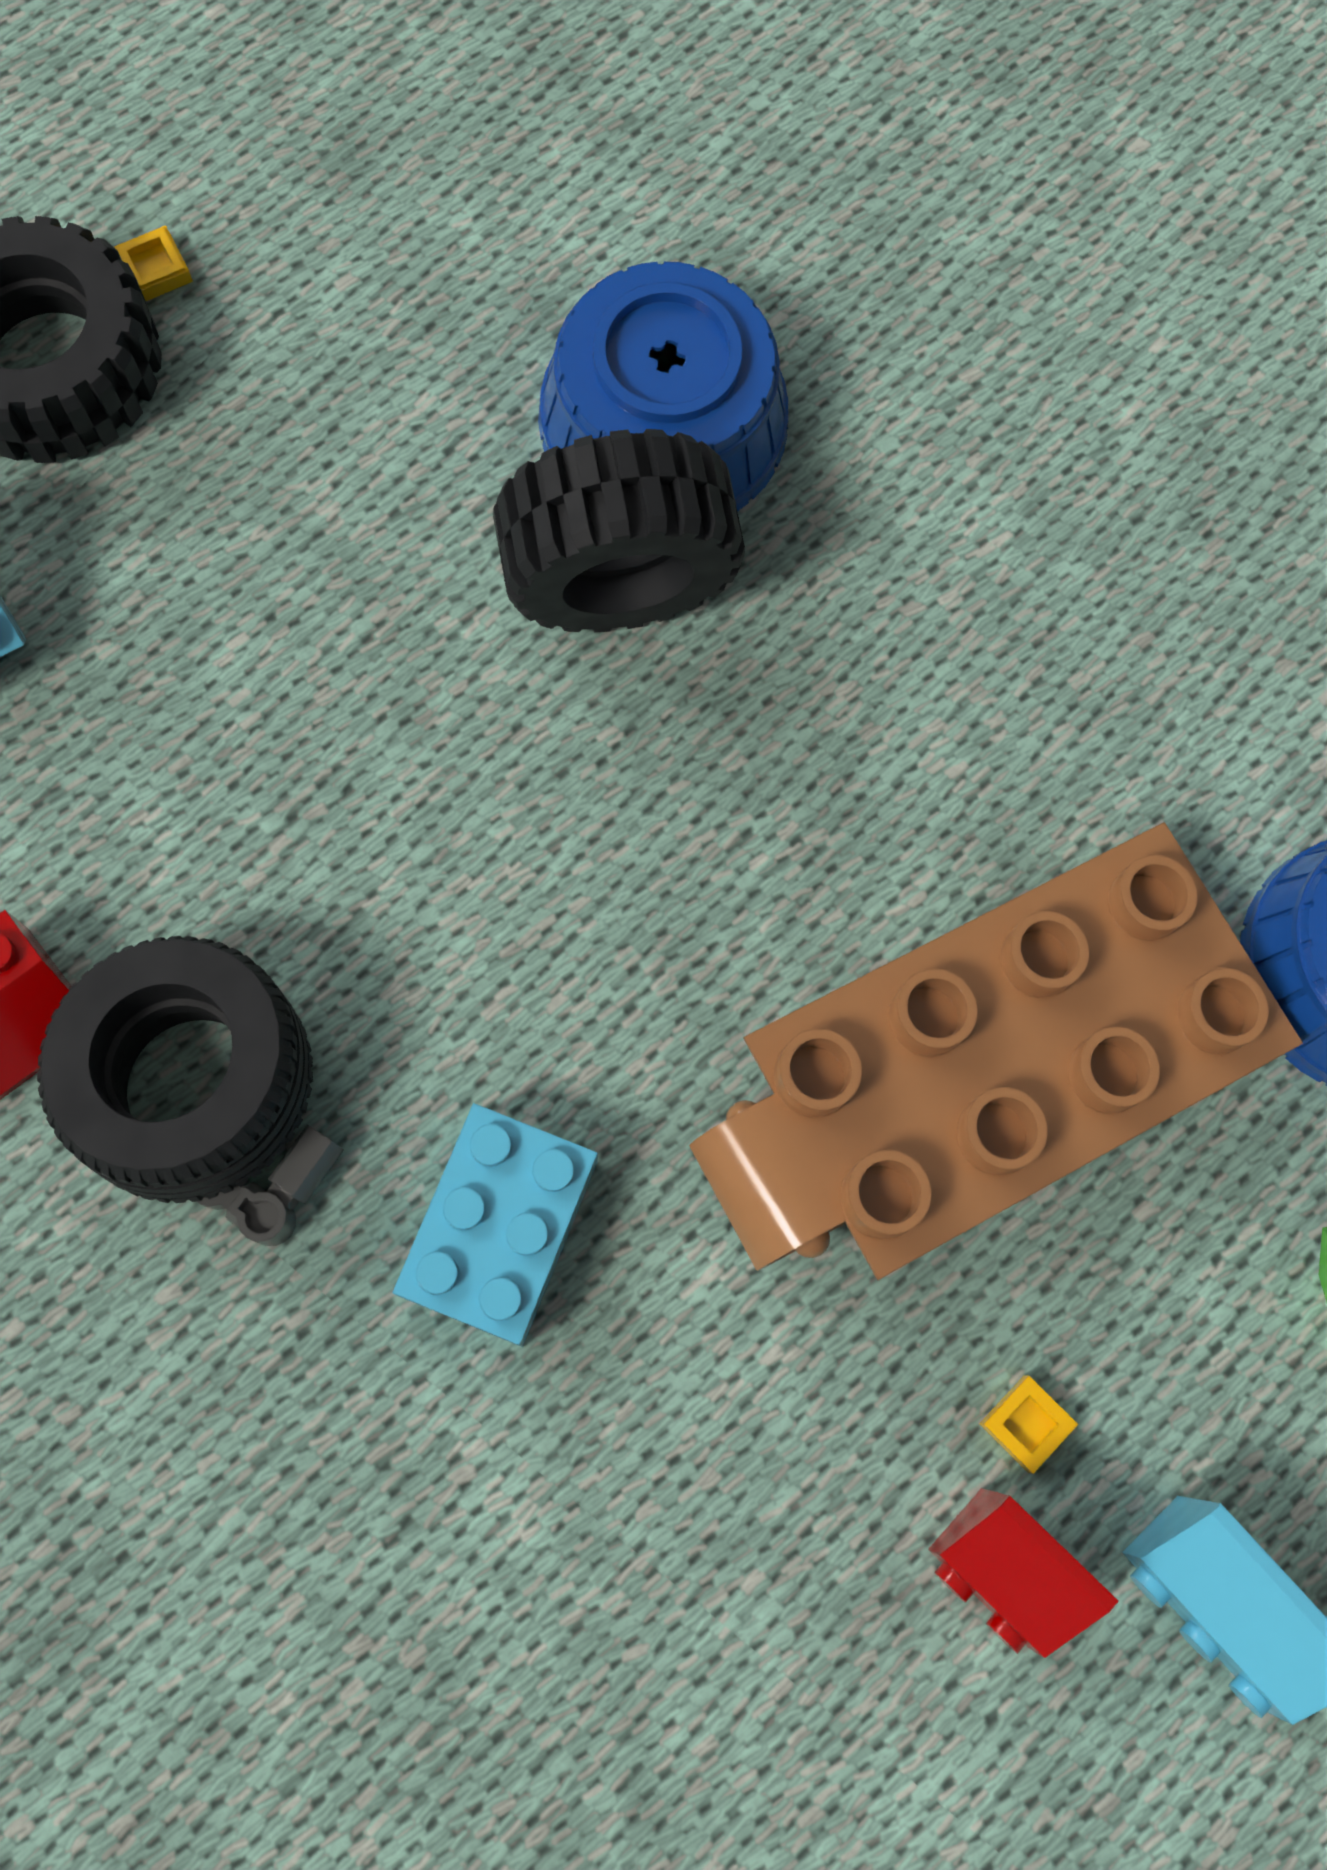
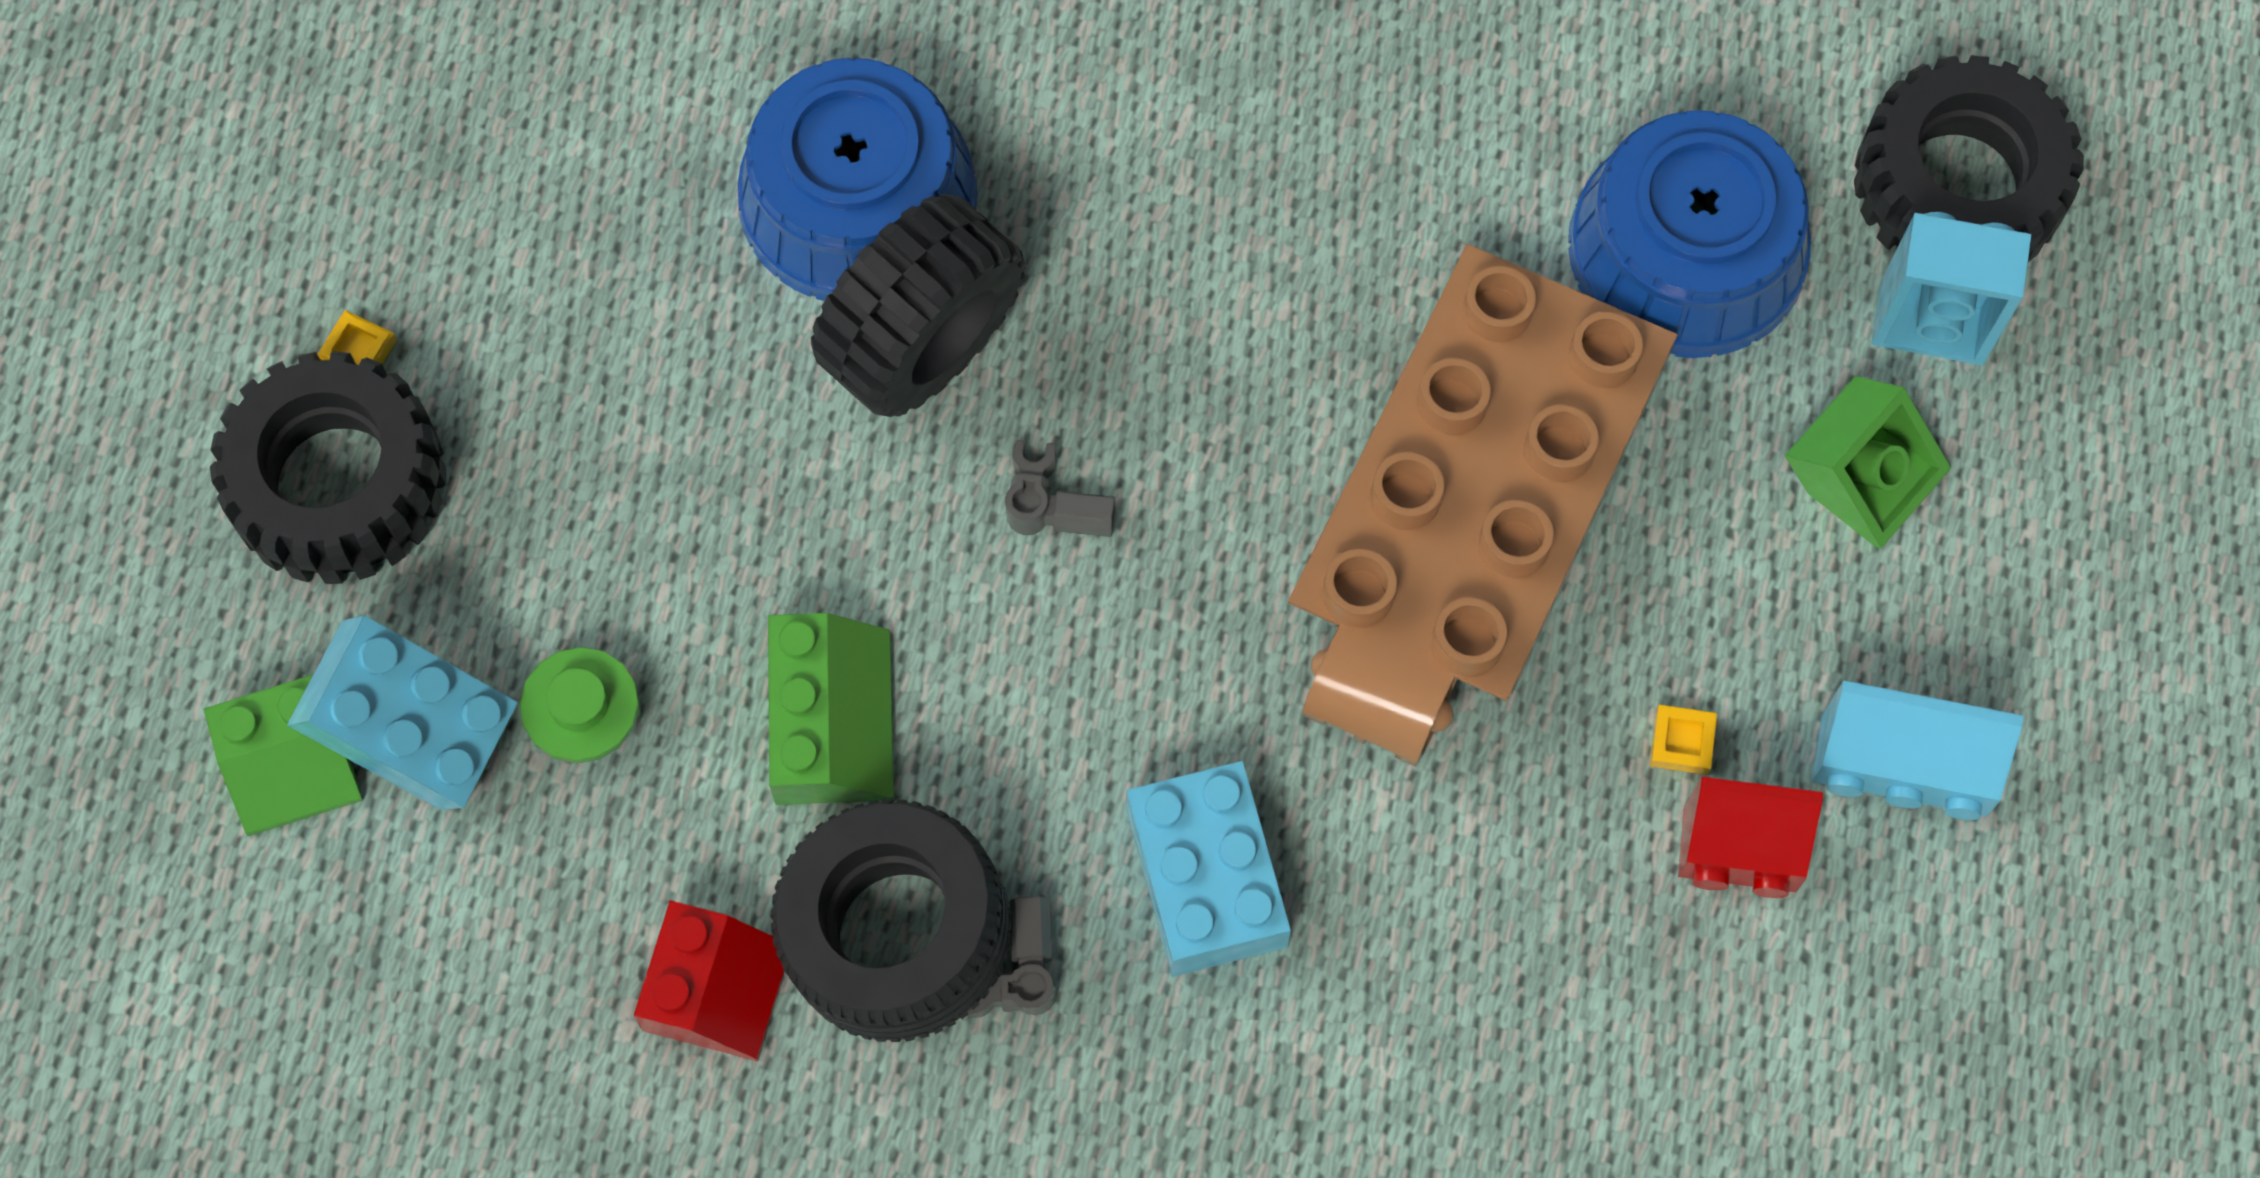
camera: 30 degrees left, 5 degrees down
(79, 685) = (579, 705): none -> bright green piece
(284, 839) = (829, 710): none -> bright green slope
(599, 789) = (1032, 508): none -> dark grey bar

